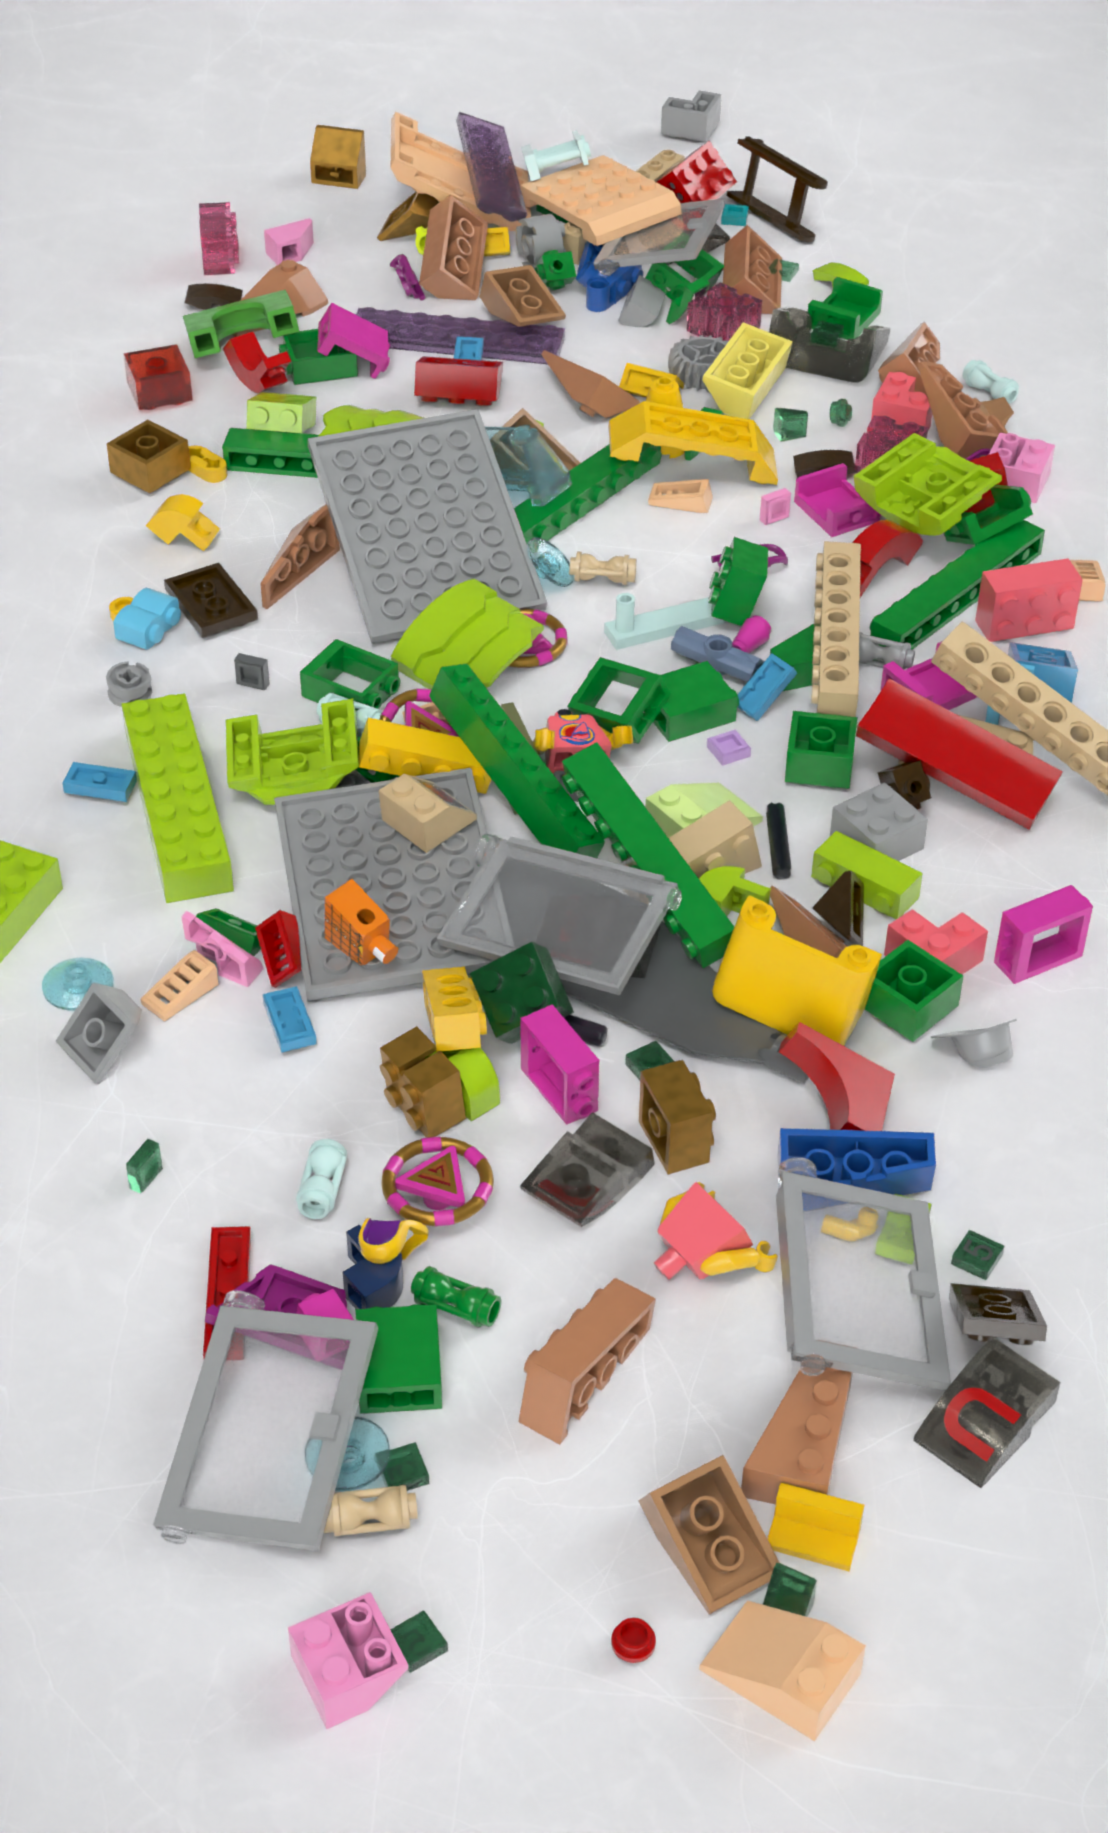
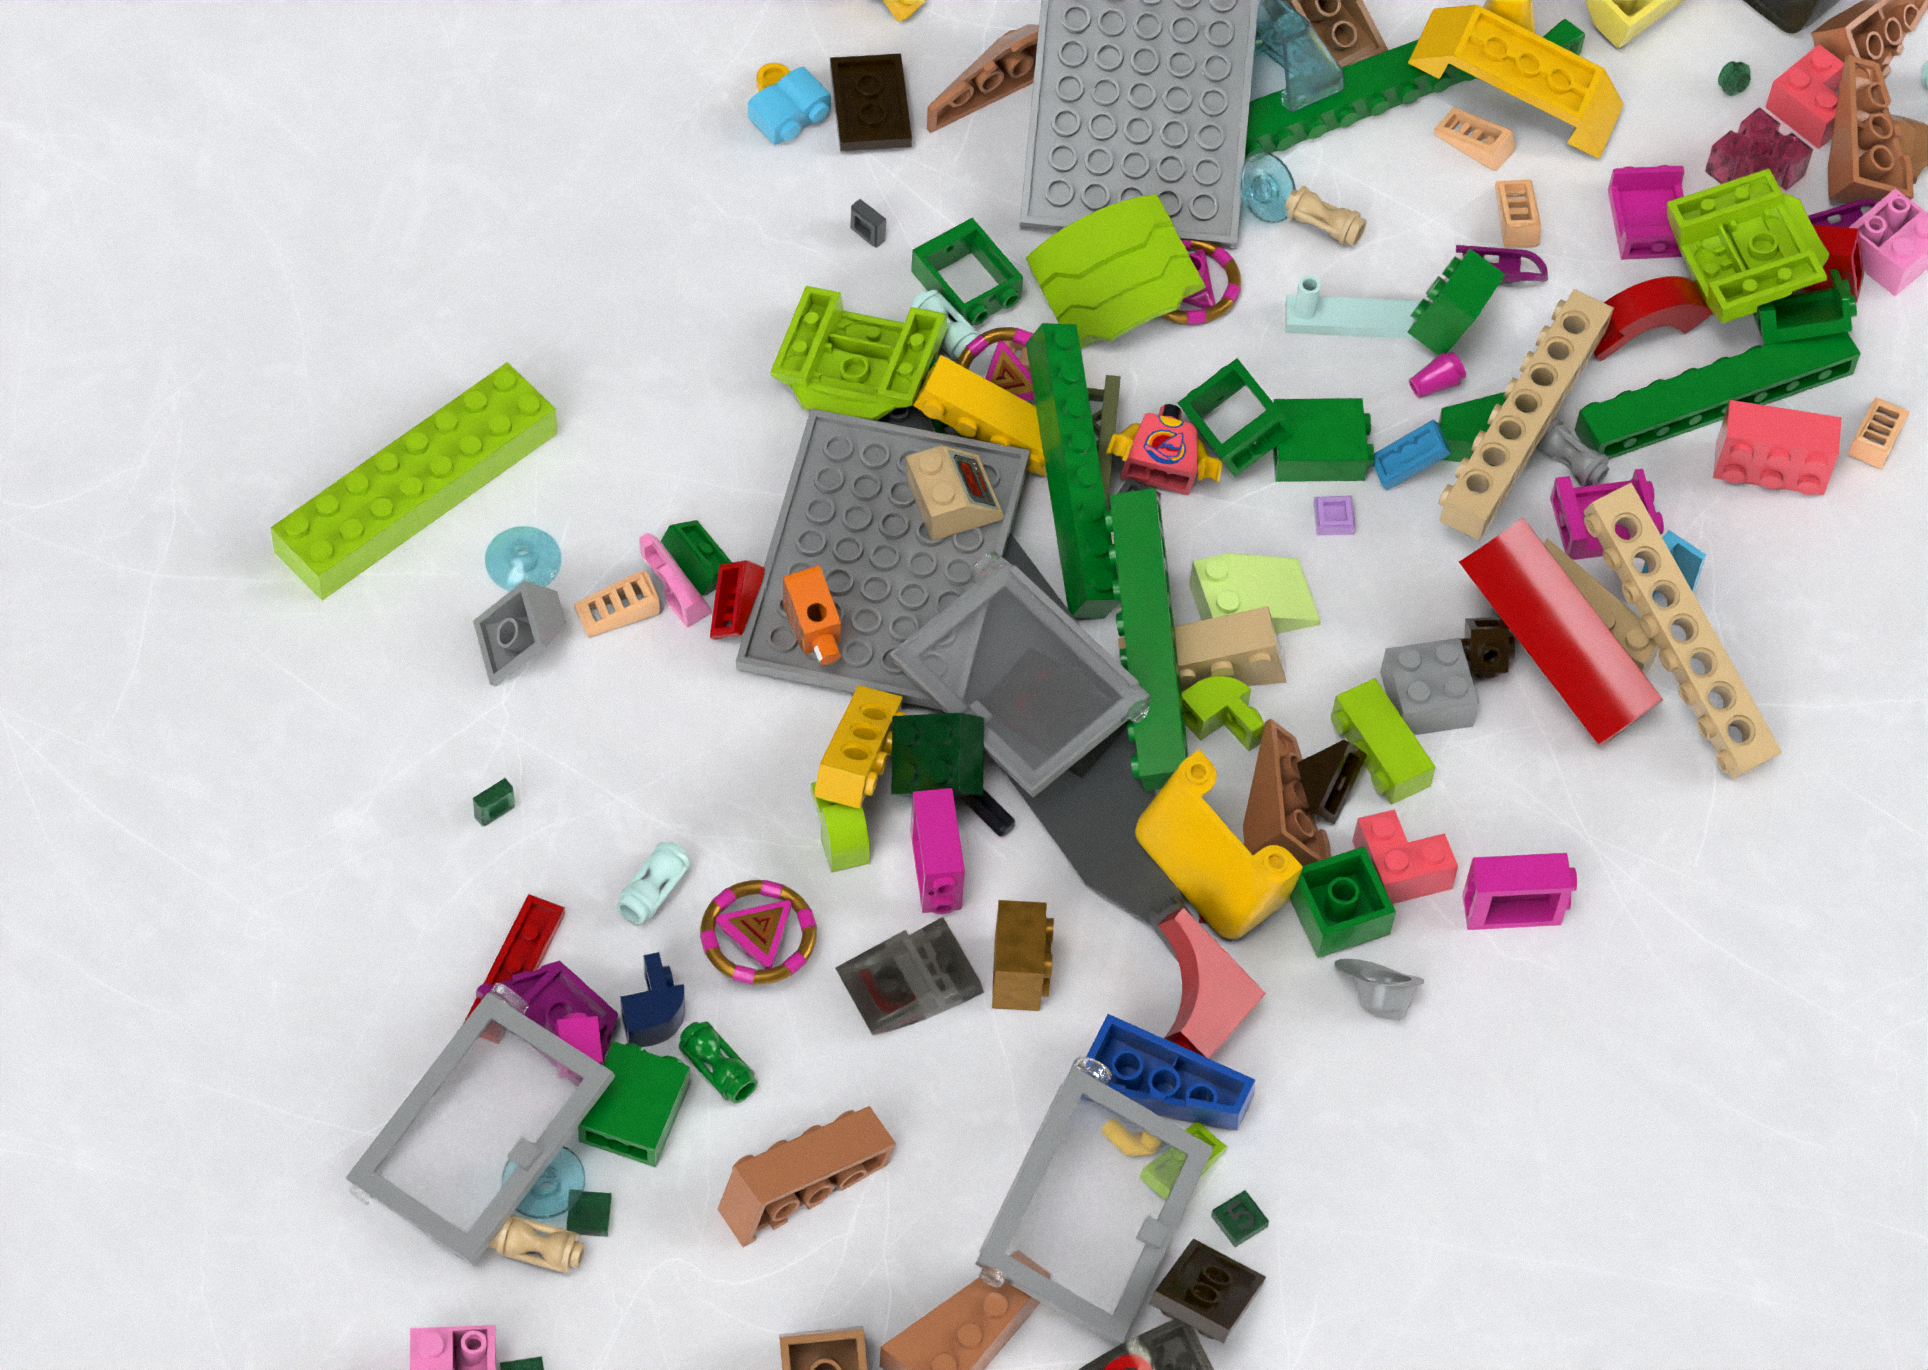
camera: 20 degrees right, 15 degrees up
(99, 781) = (646, 313): dark azure plate -> none
(128, 683) = (732, 191): light grey wheel -> none
(177, 798) = (714, 365): lime brick -> none
(289, 1019) = (706, 686): dark azure plate -> none
(386, 1239) = (672, 978): yellow piece -> none
(421, 1087) = (790, 820): pearl gold piece -> none
(646, 1058) = (1038, 878): clear green plate -> none
(706, 1238) = (980, 1094): coral torso -> none
(717, 651) = (1374, 375): sand blue piece -> none
(741, 525) = (1518, 216): none -> light nougat slope
(775, 506) = (1572, 196): bright pink tile -> none
(778, 840) = (1318, 658): black axle -> none
(790, 423) = (1662, 75): clear green slope -> none
(821, 749) = (1422, 563): green brick -> none
(822, 459) = (1671, 148): dark brown slope -> none
(1051, 665) = (1740, 547): dark azure slope -> none

